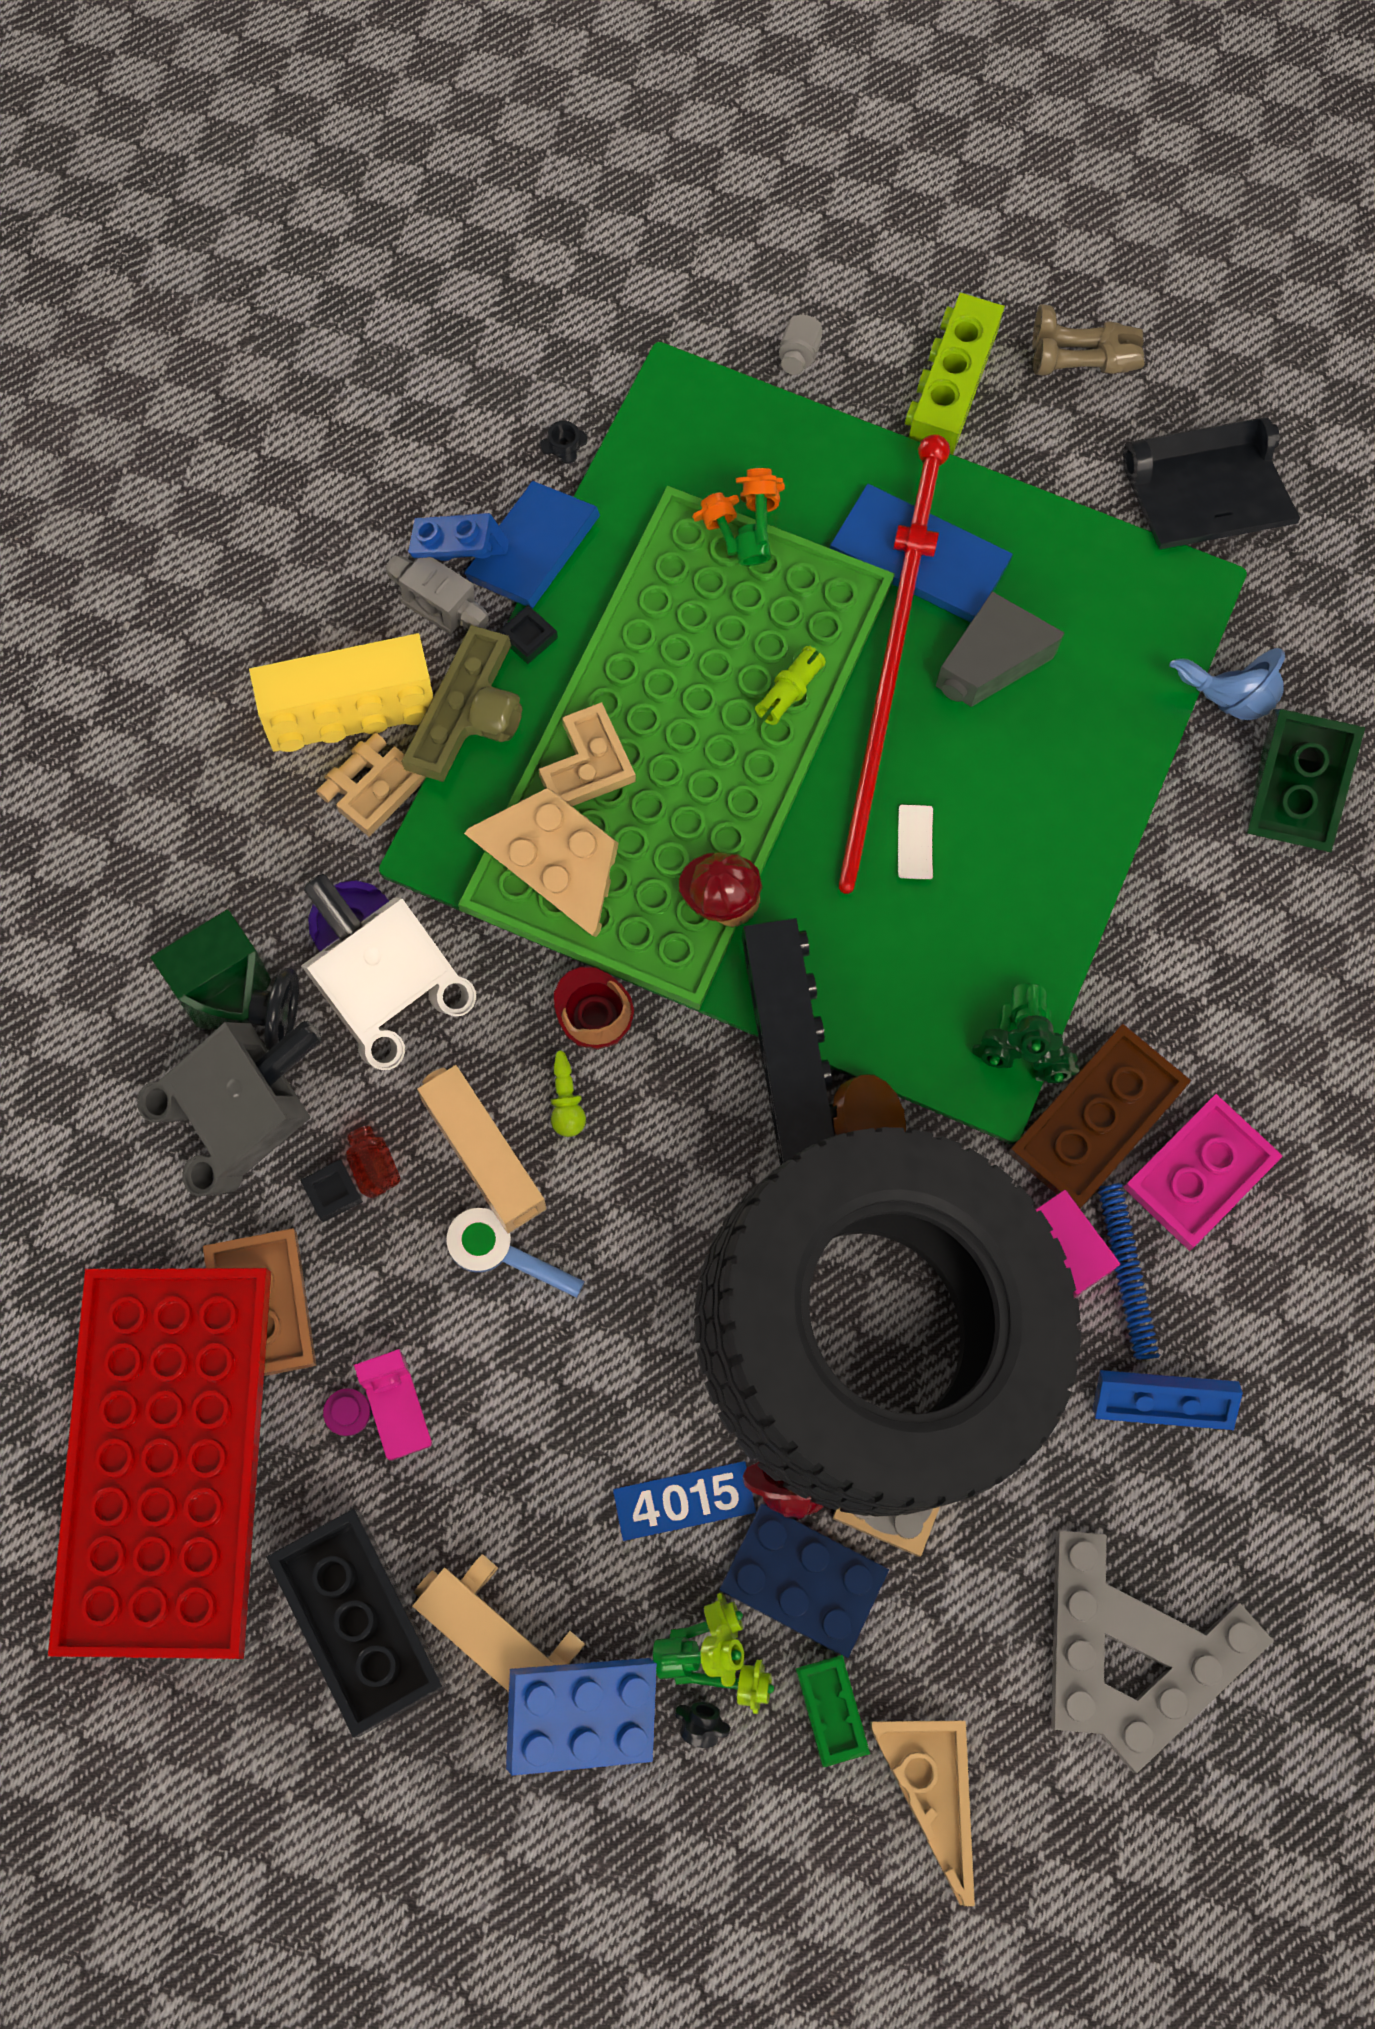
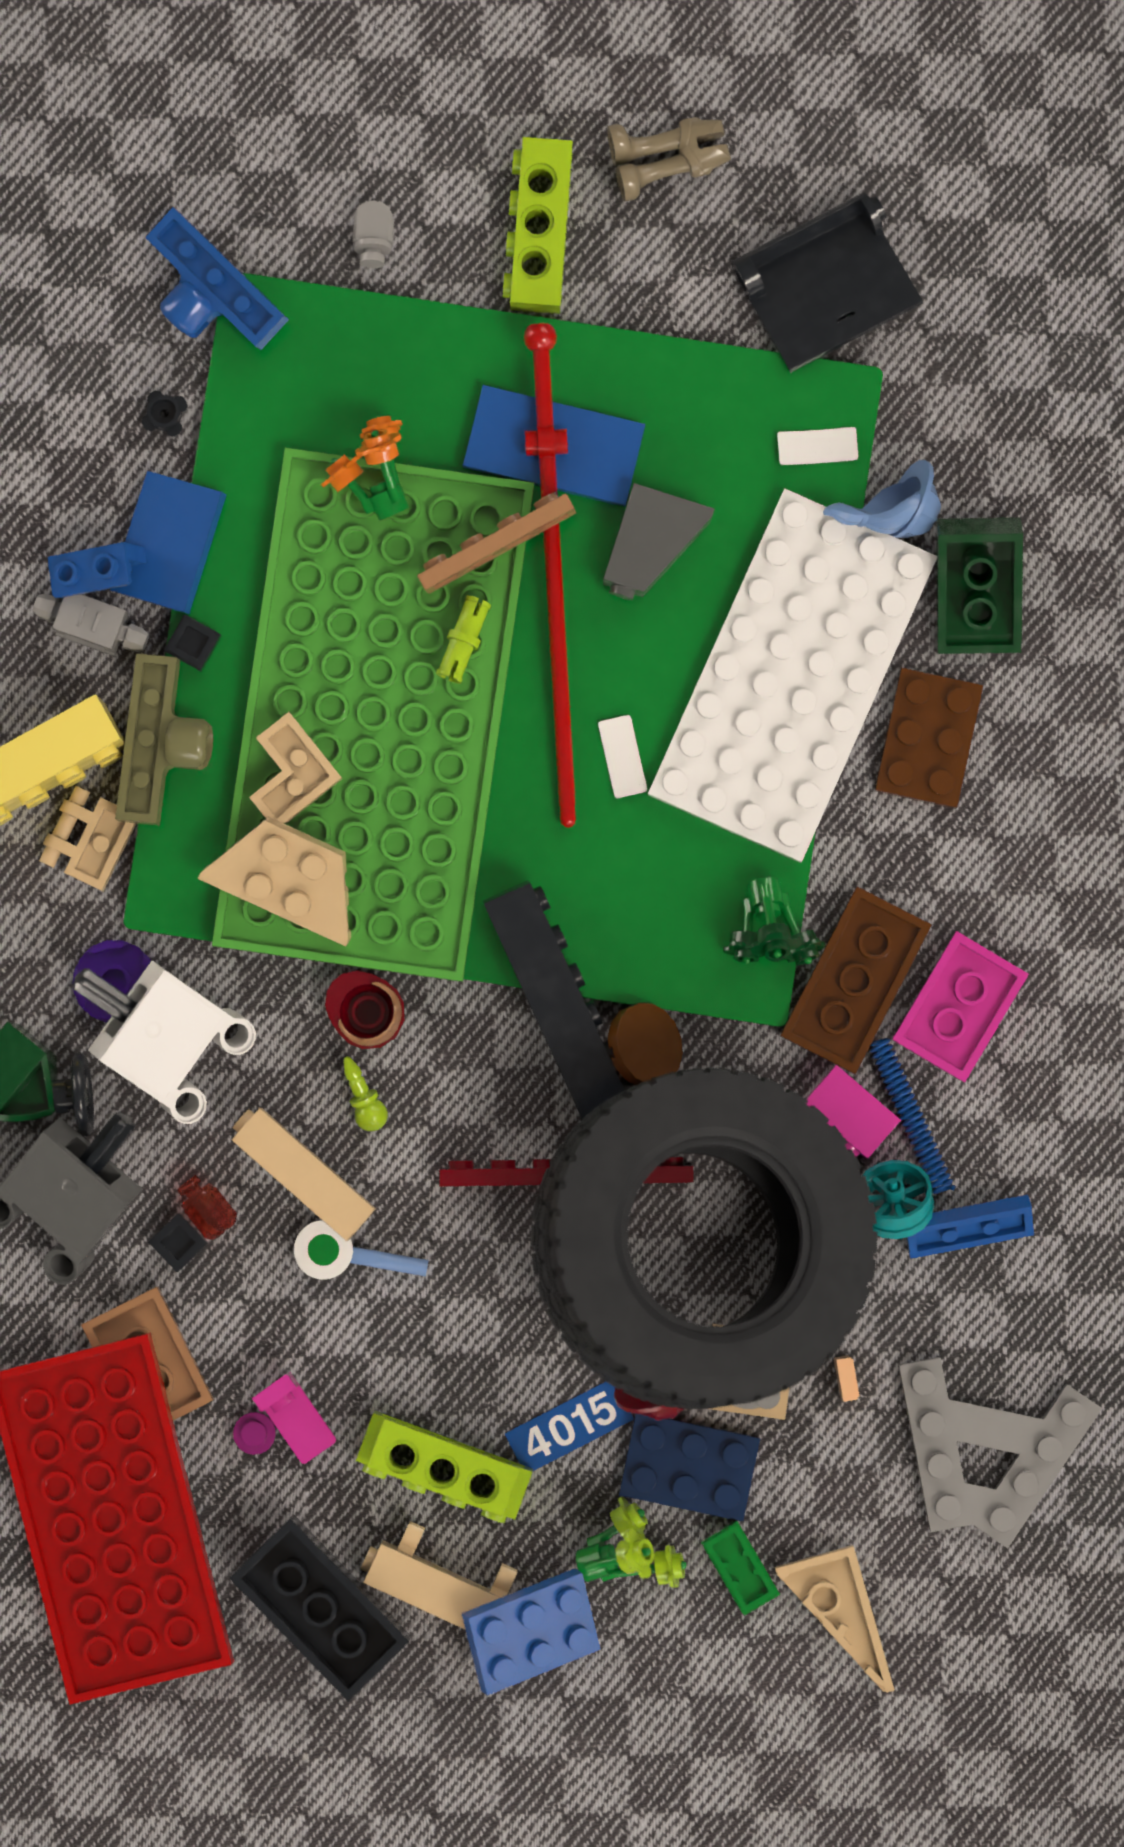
camera: 10 degrees left, 15 degrees up
(487, 1449) = (468, 1461): none -> lime brick
(639, 344) = (210, 285): none -> blue plate
(689, 1212) = (506, 1174): none -> dark red plate
(701, 1724) = (633, 1608): black plate -> none
(722, 888) = (451, 865): dark red piece -> none
(847, 606) = (480, 550): none -> medium nougat plate
(999, 1528) = (846, 1378): none -> light nougat tile
(1099, 814) = (792, 676): none -> white plate
(1102, 1337) = (892, 1216): none -> teal wheel
(1171, 618) = (817, 446): none -> white sticker
(1222, 908) = (928, 738): none -> reddish brown plate

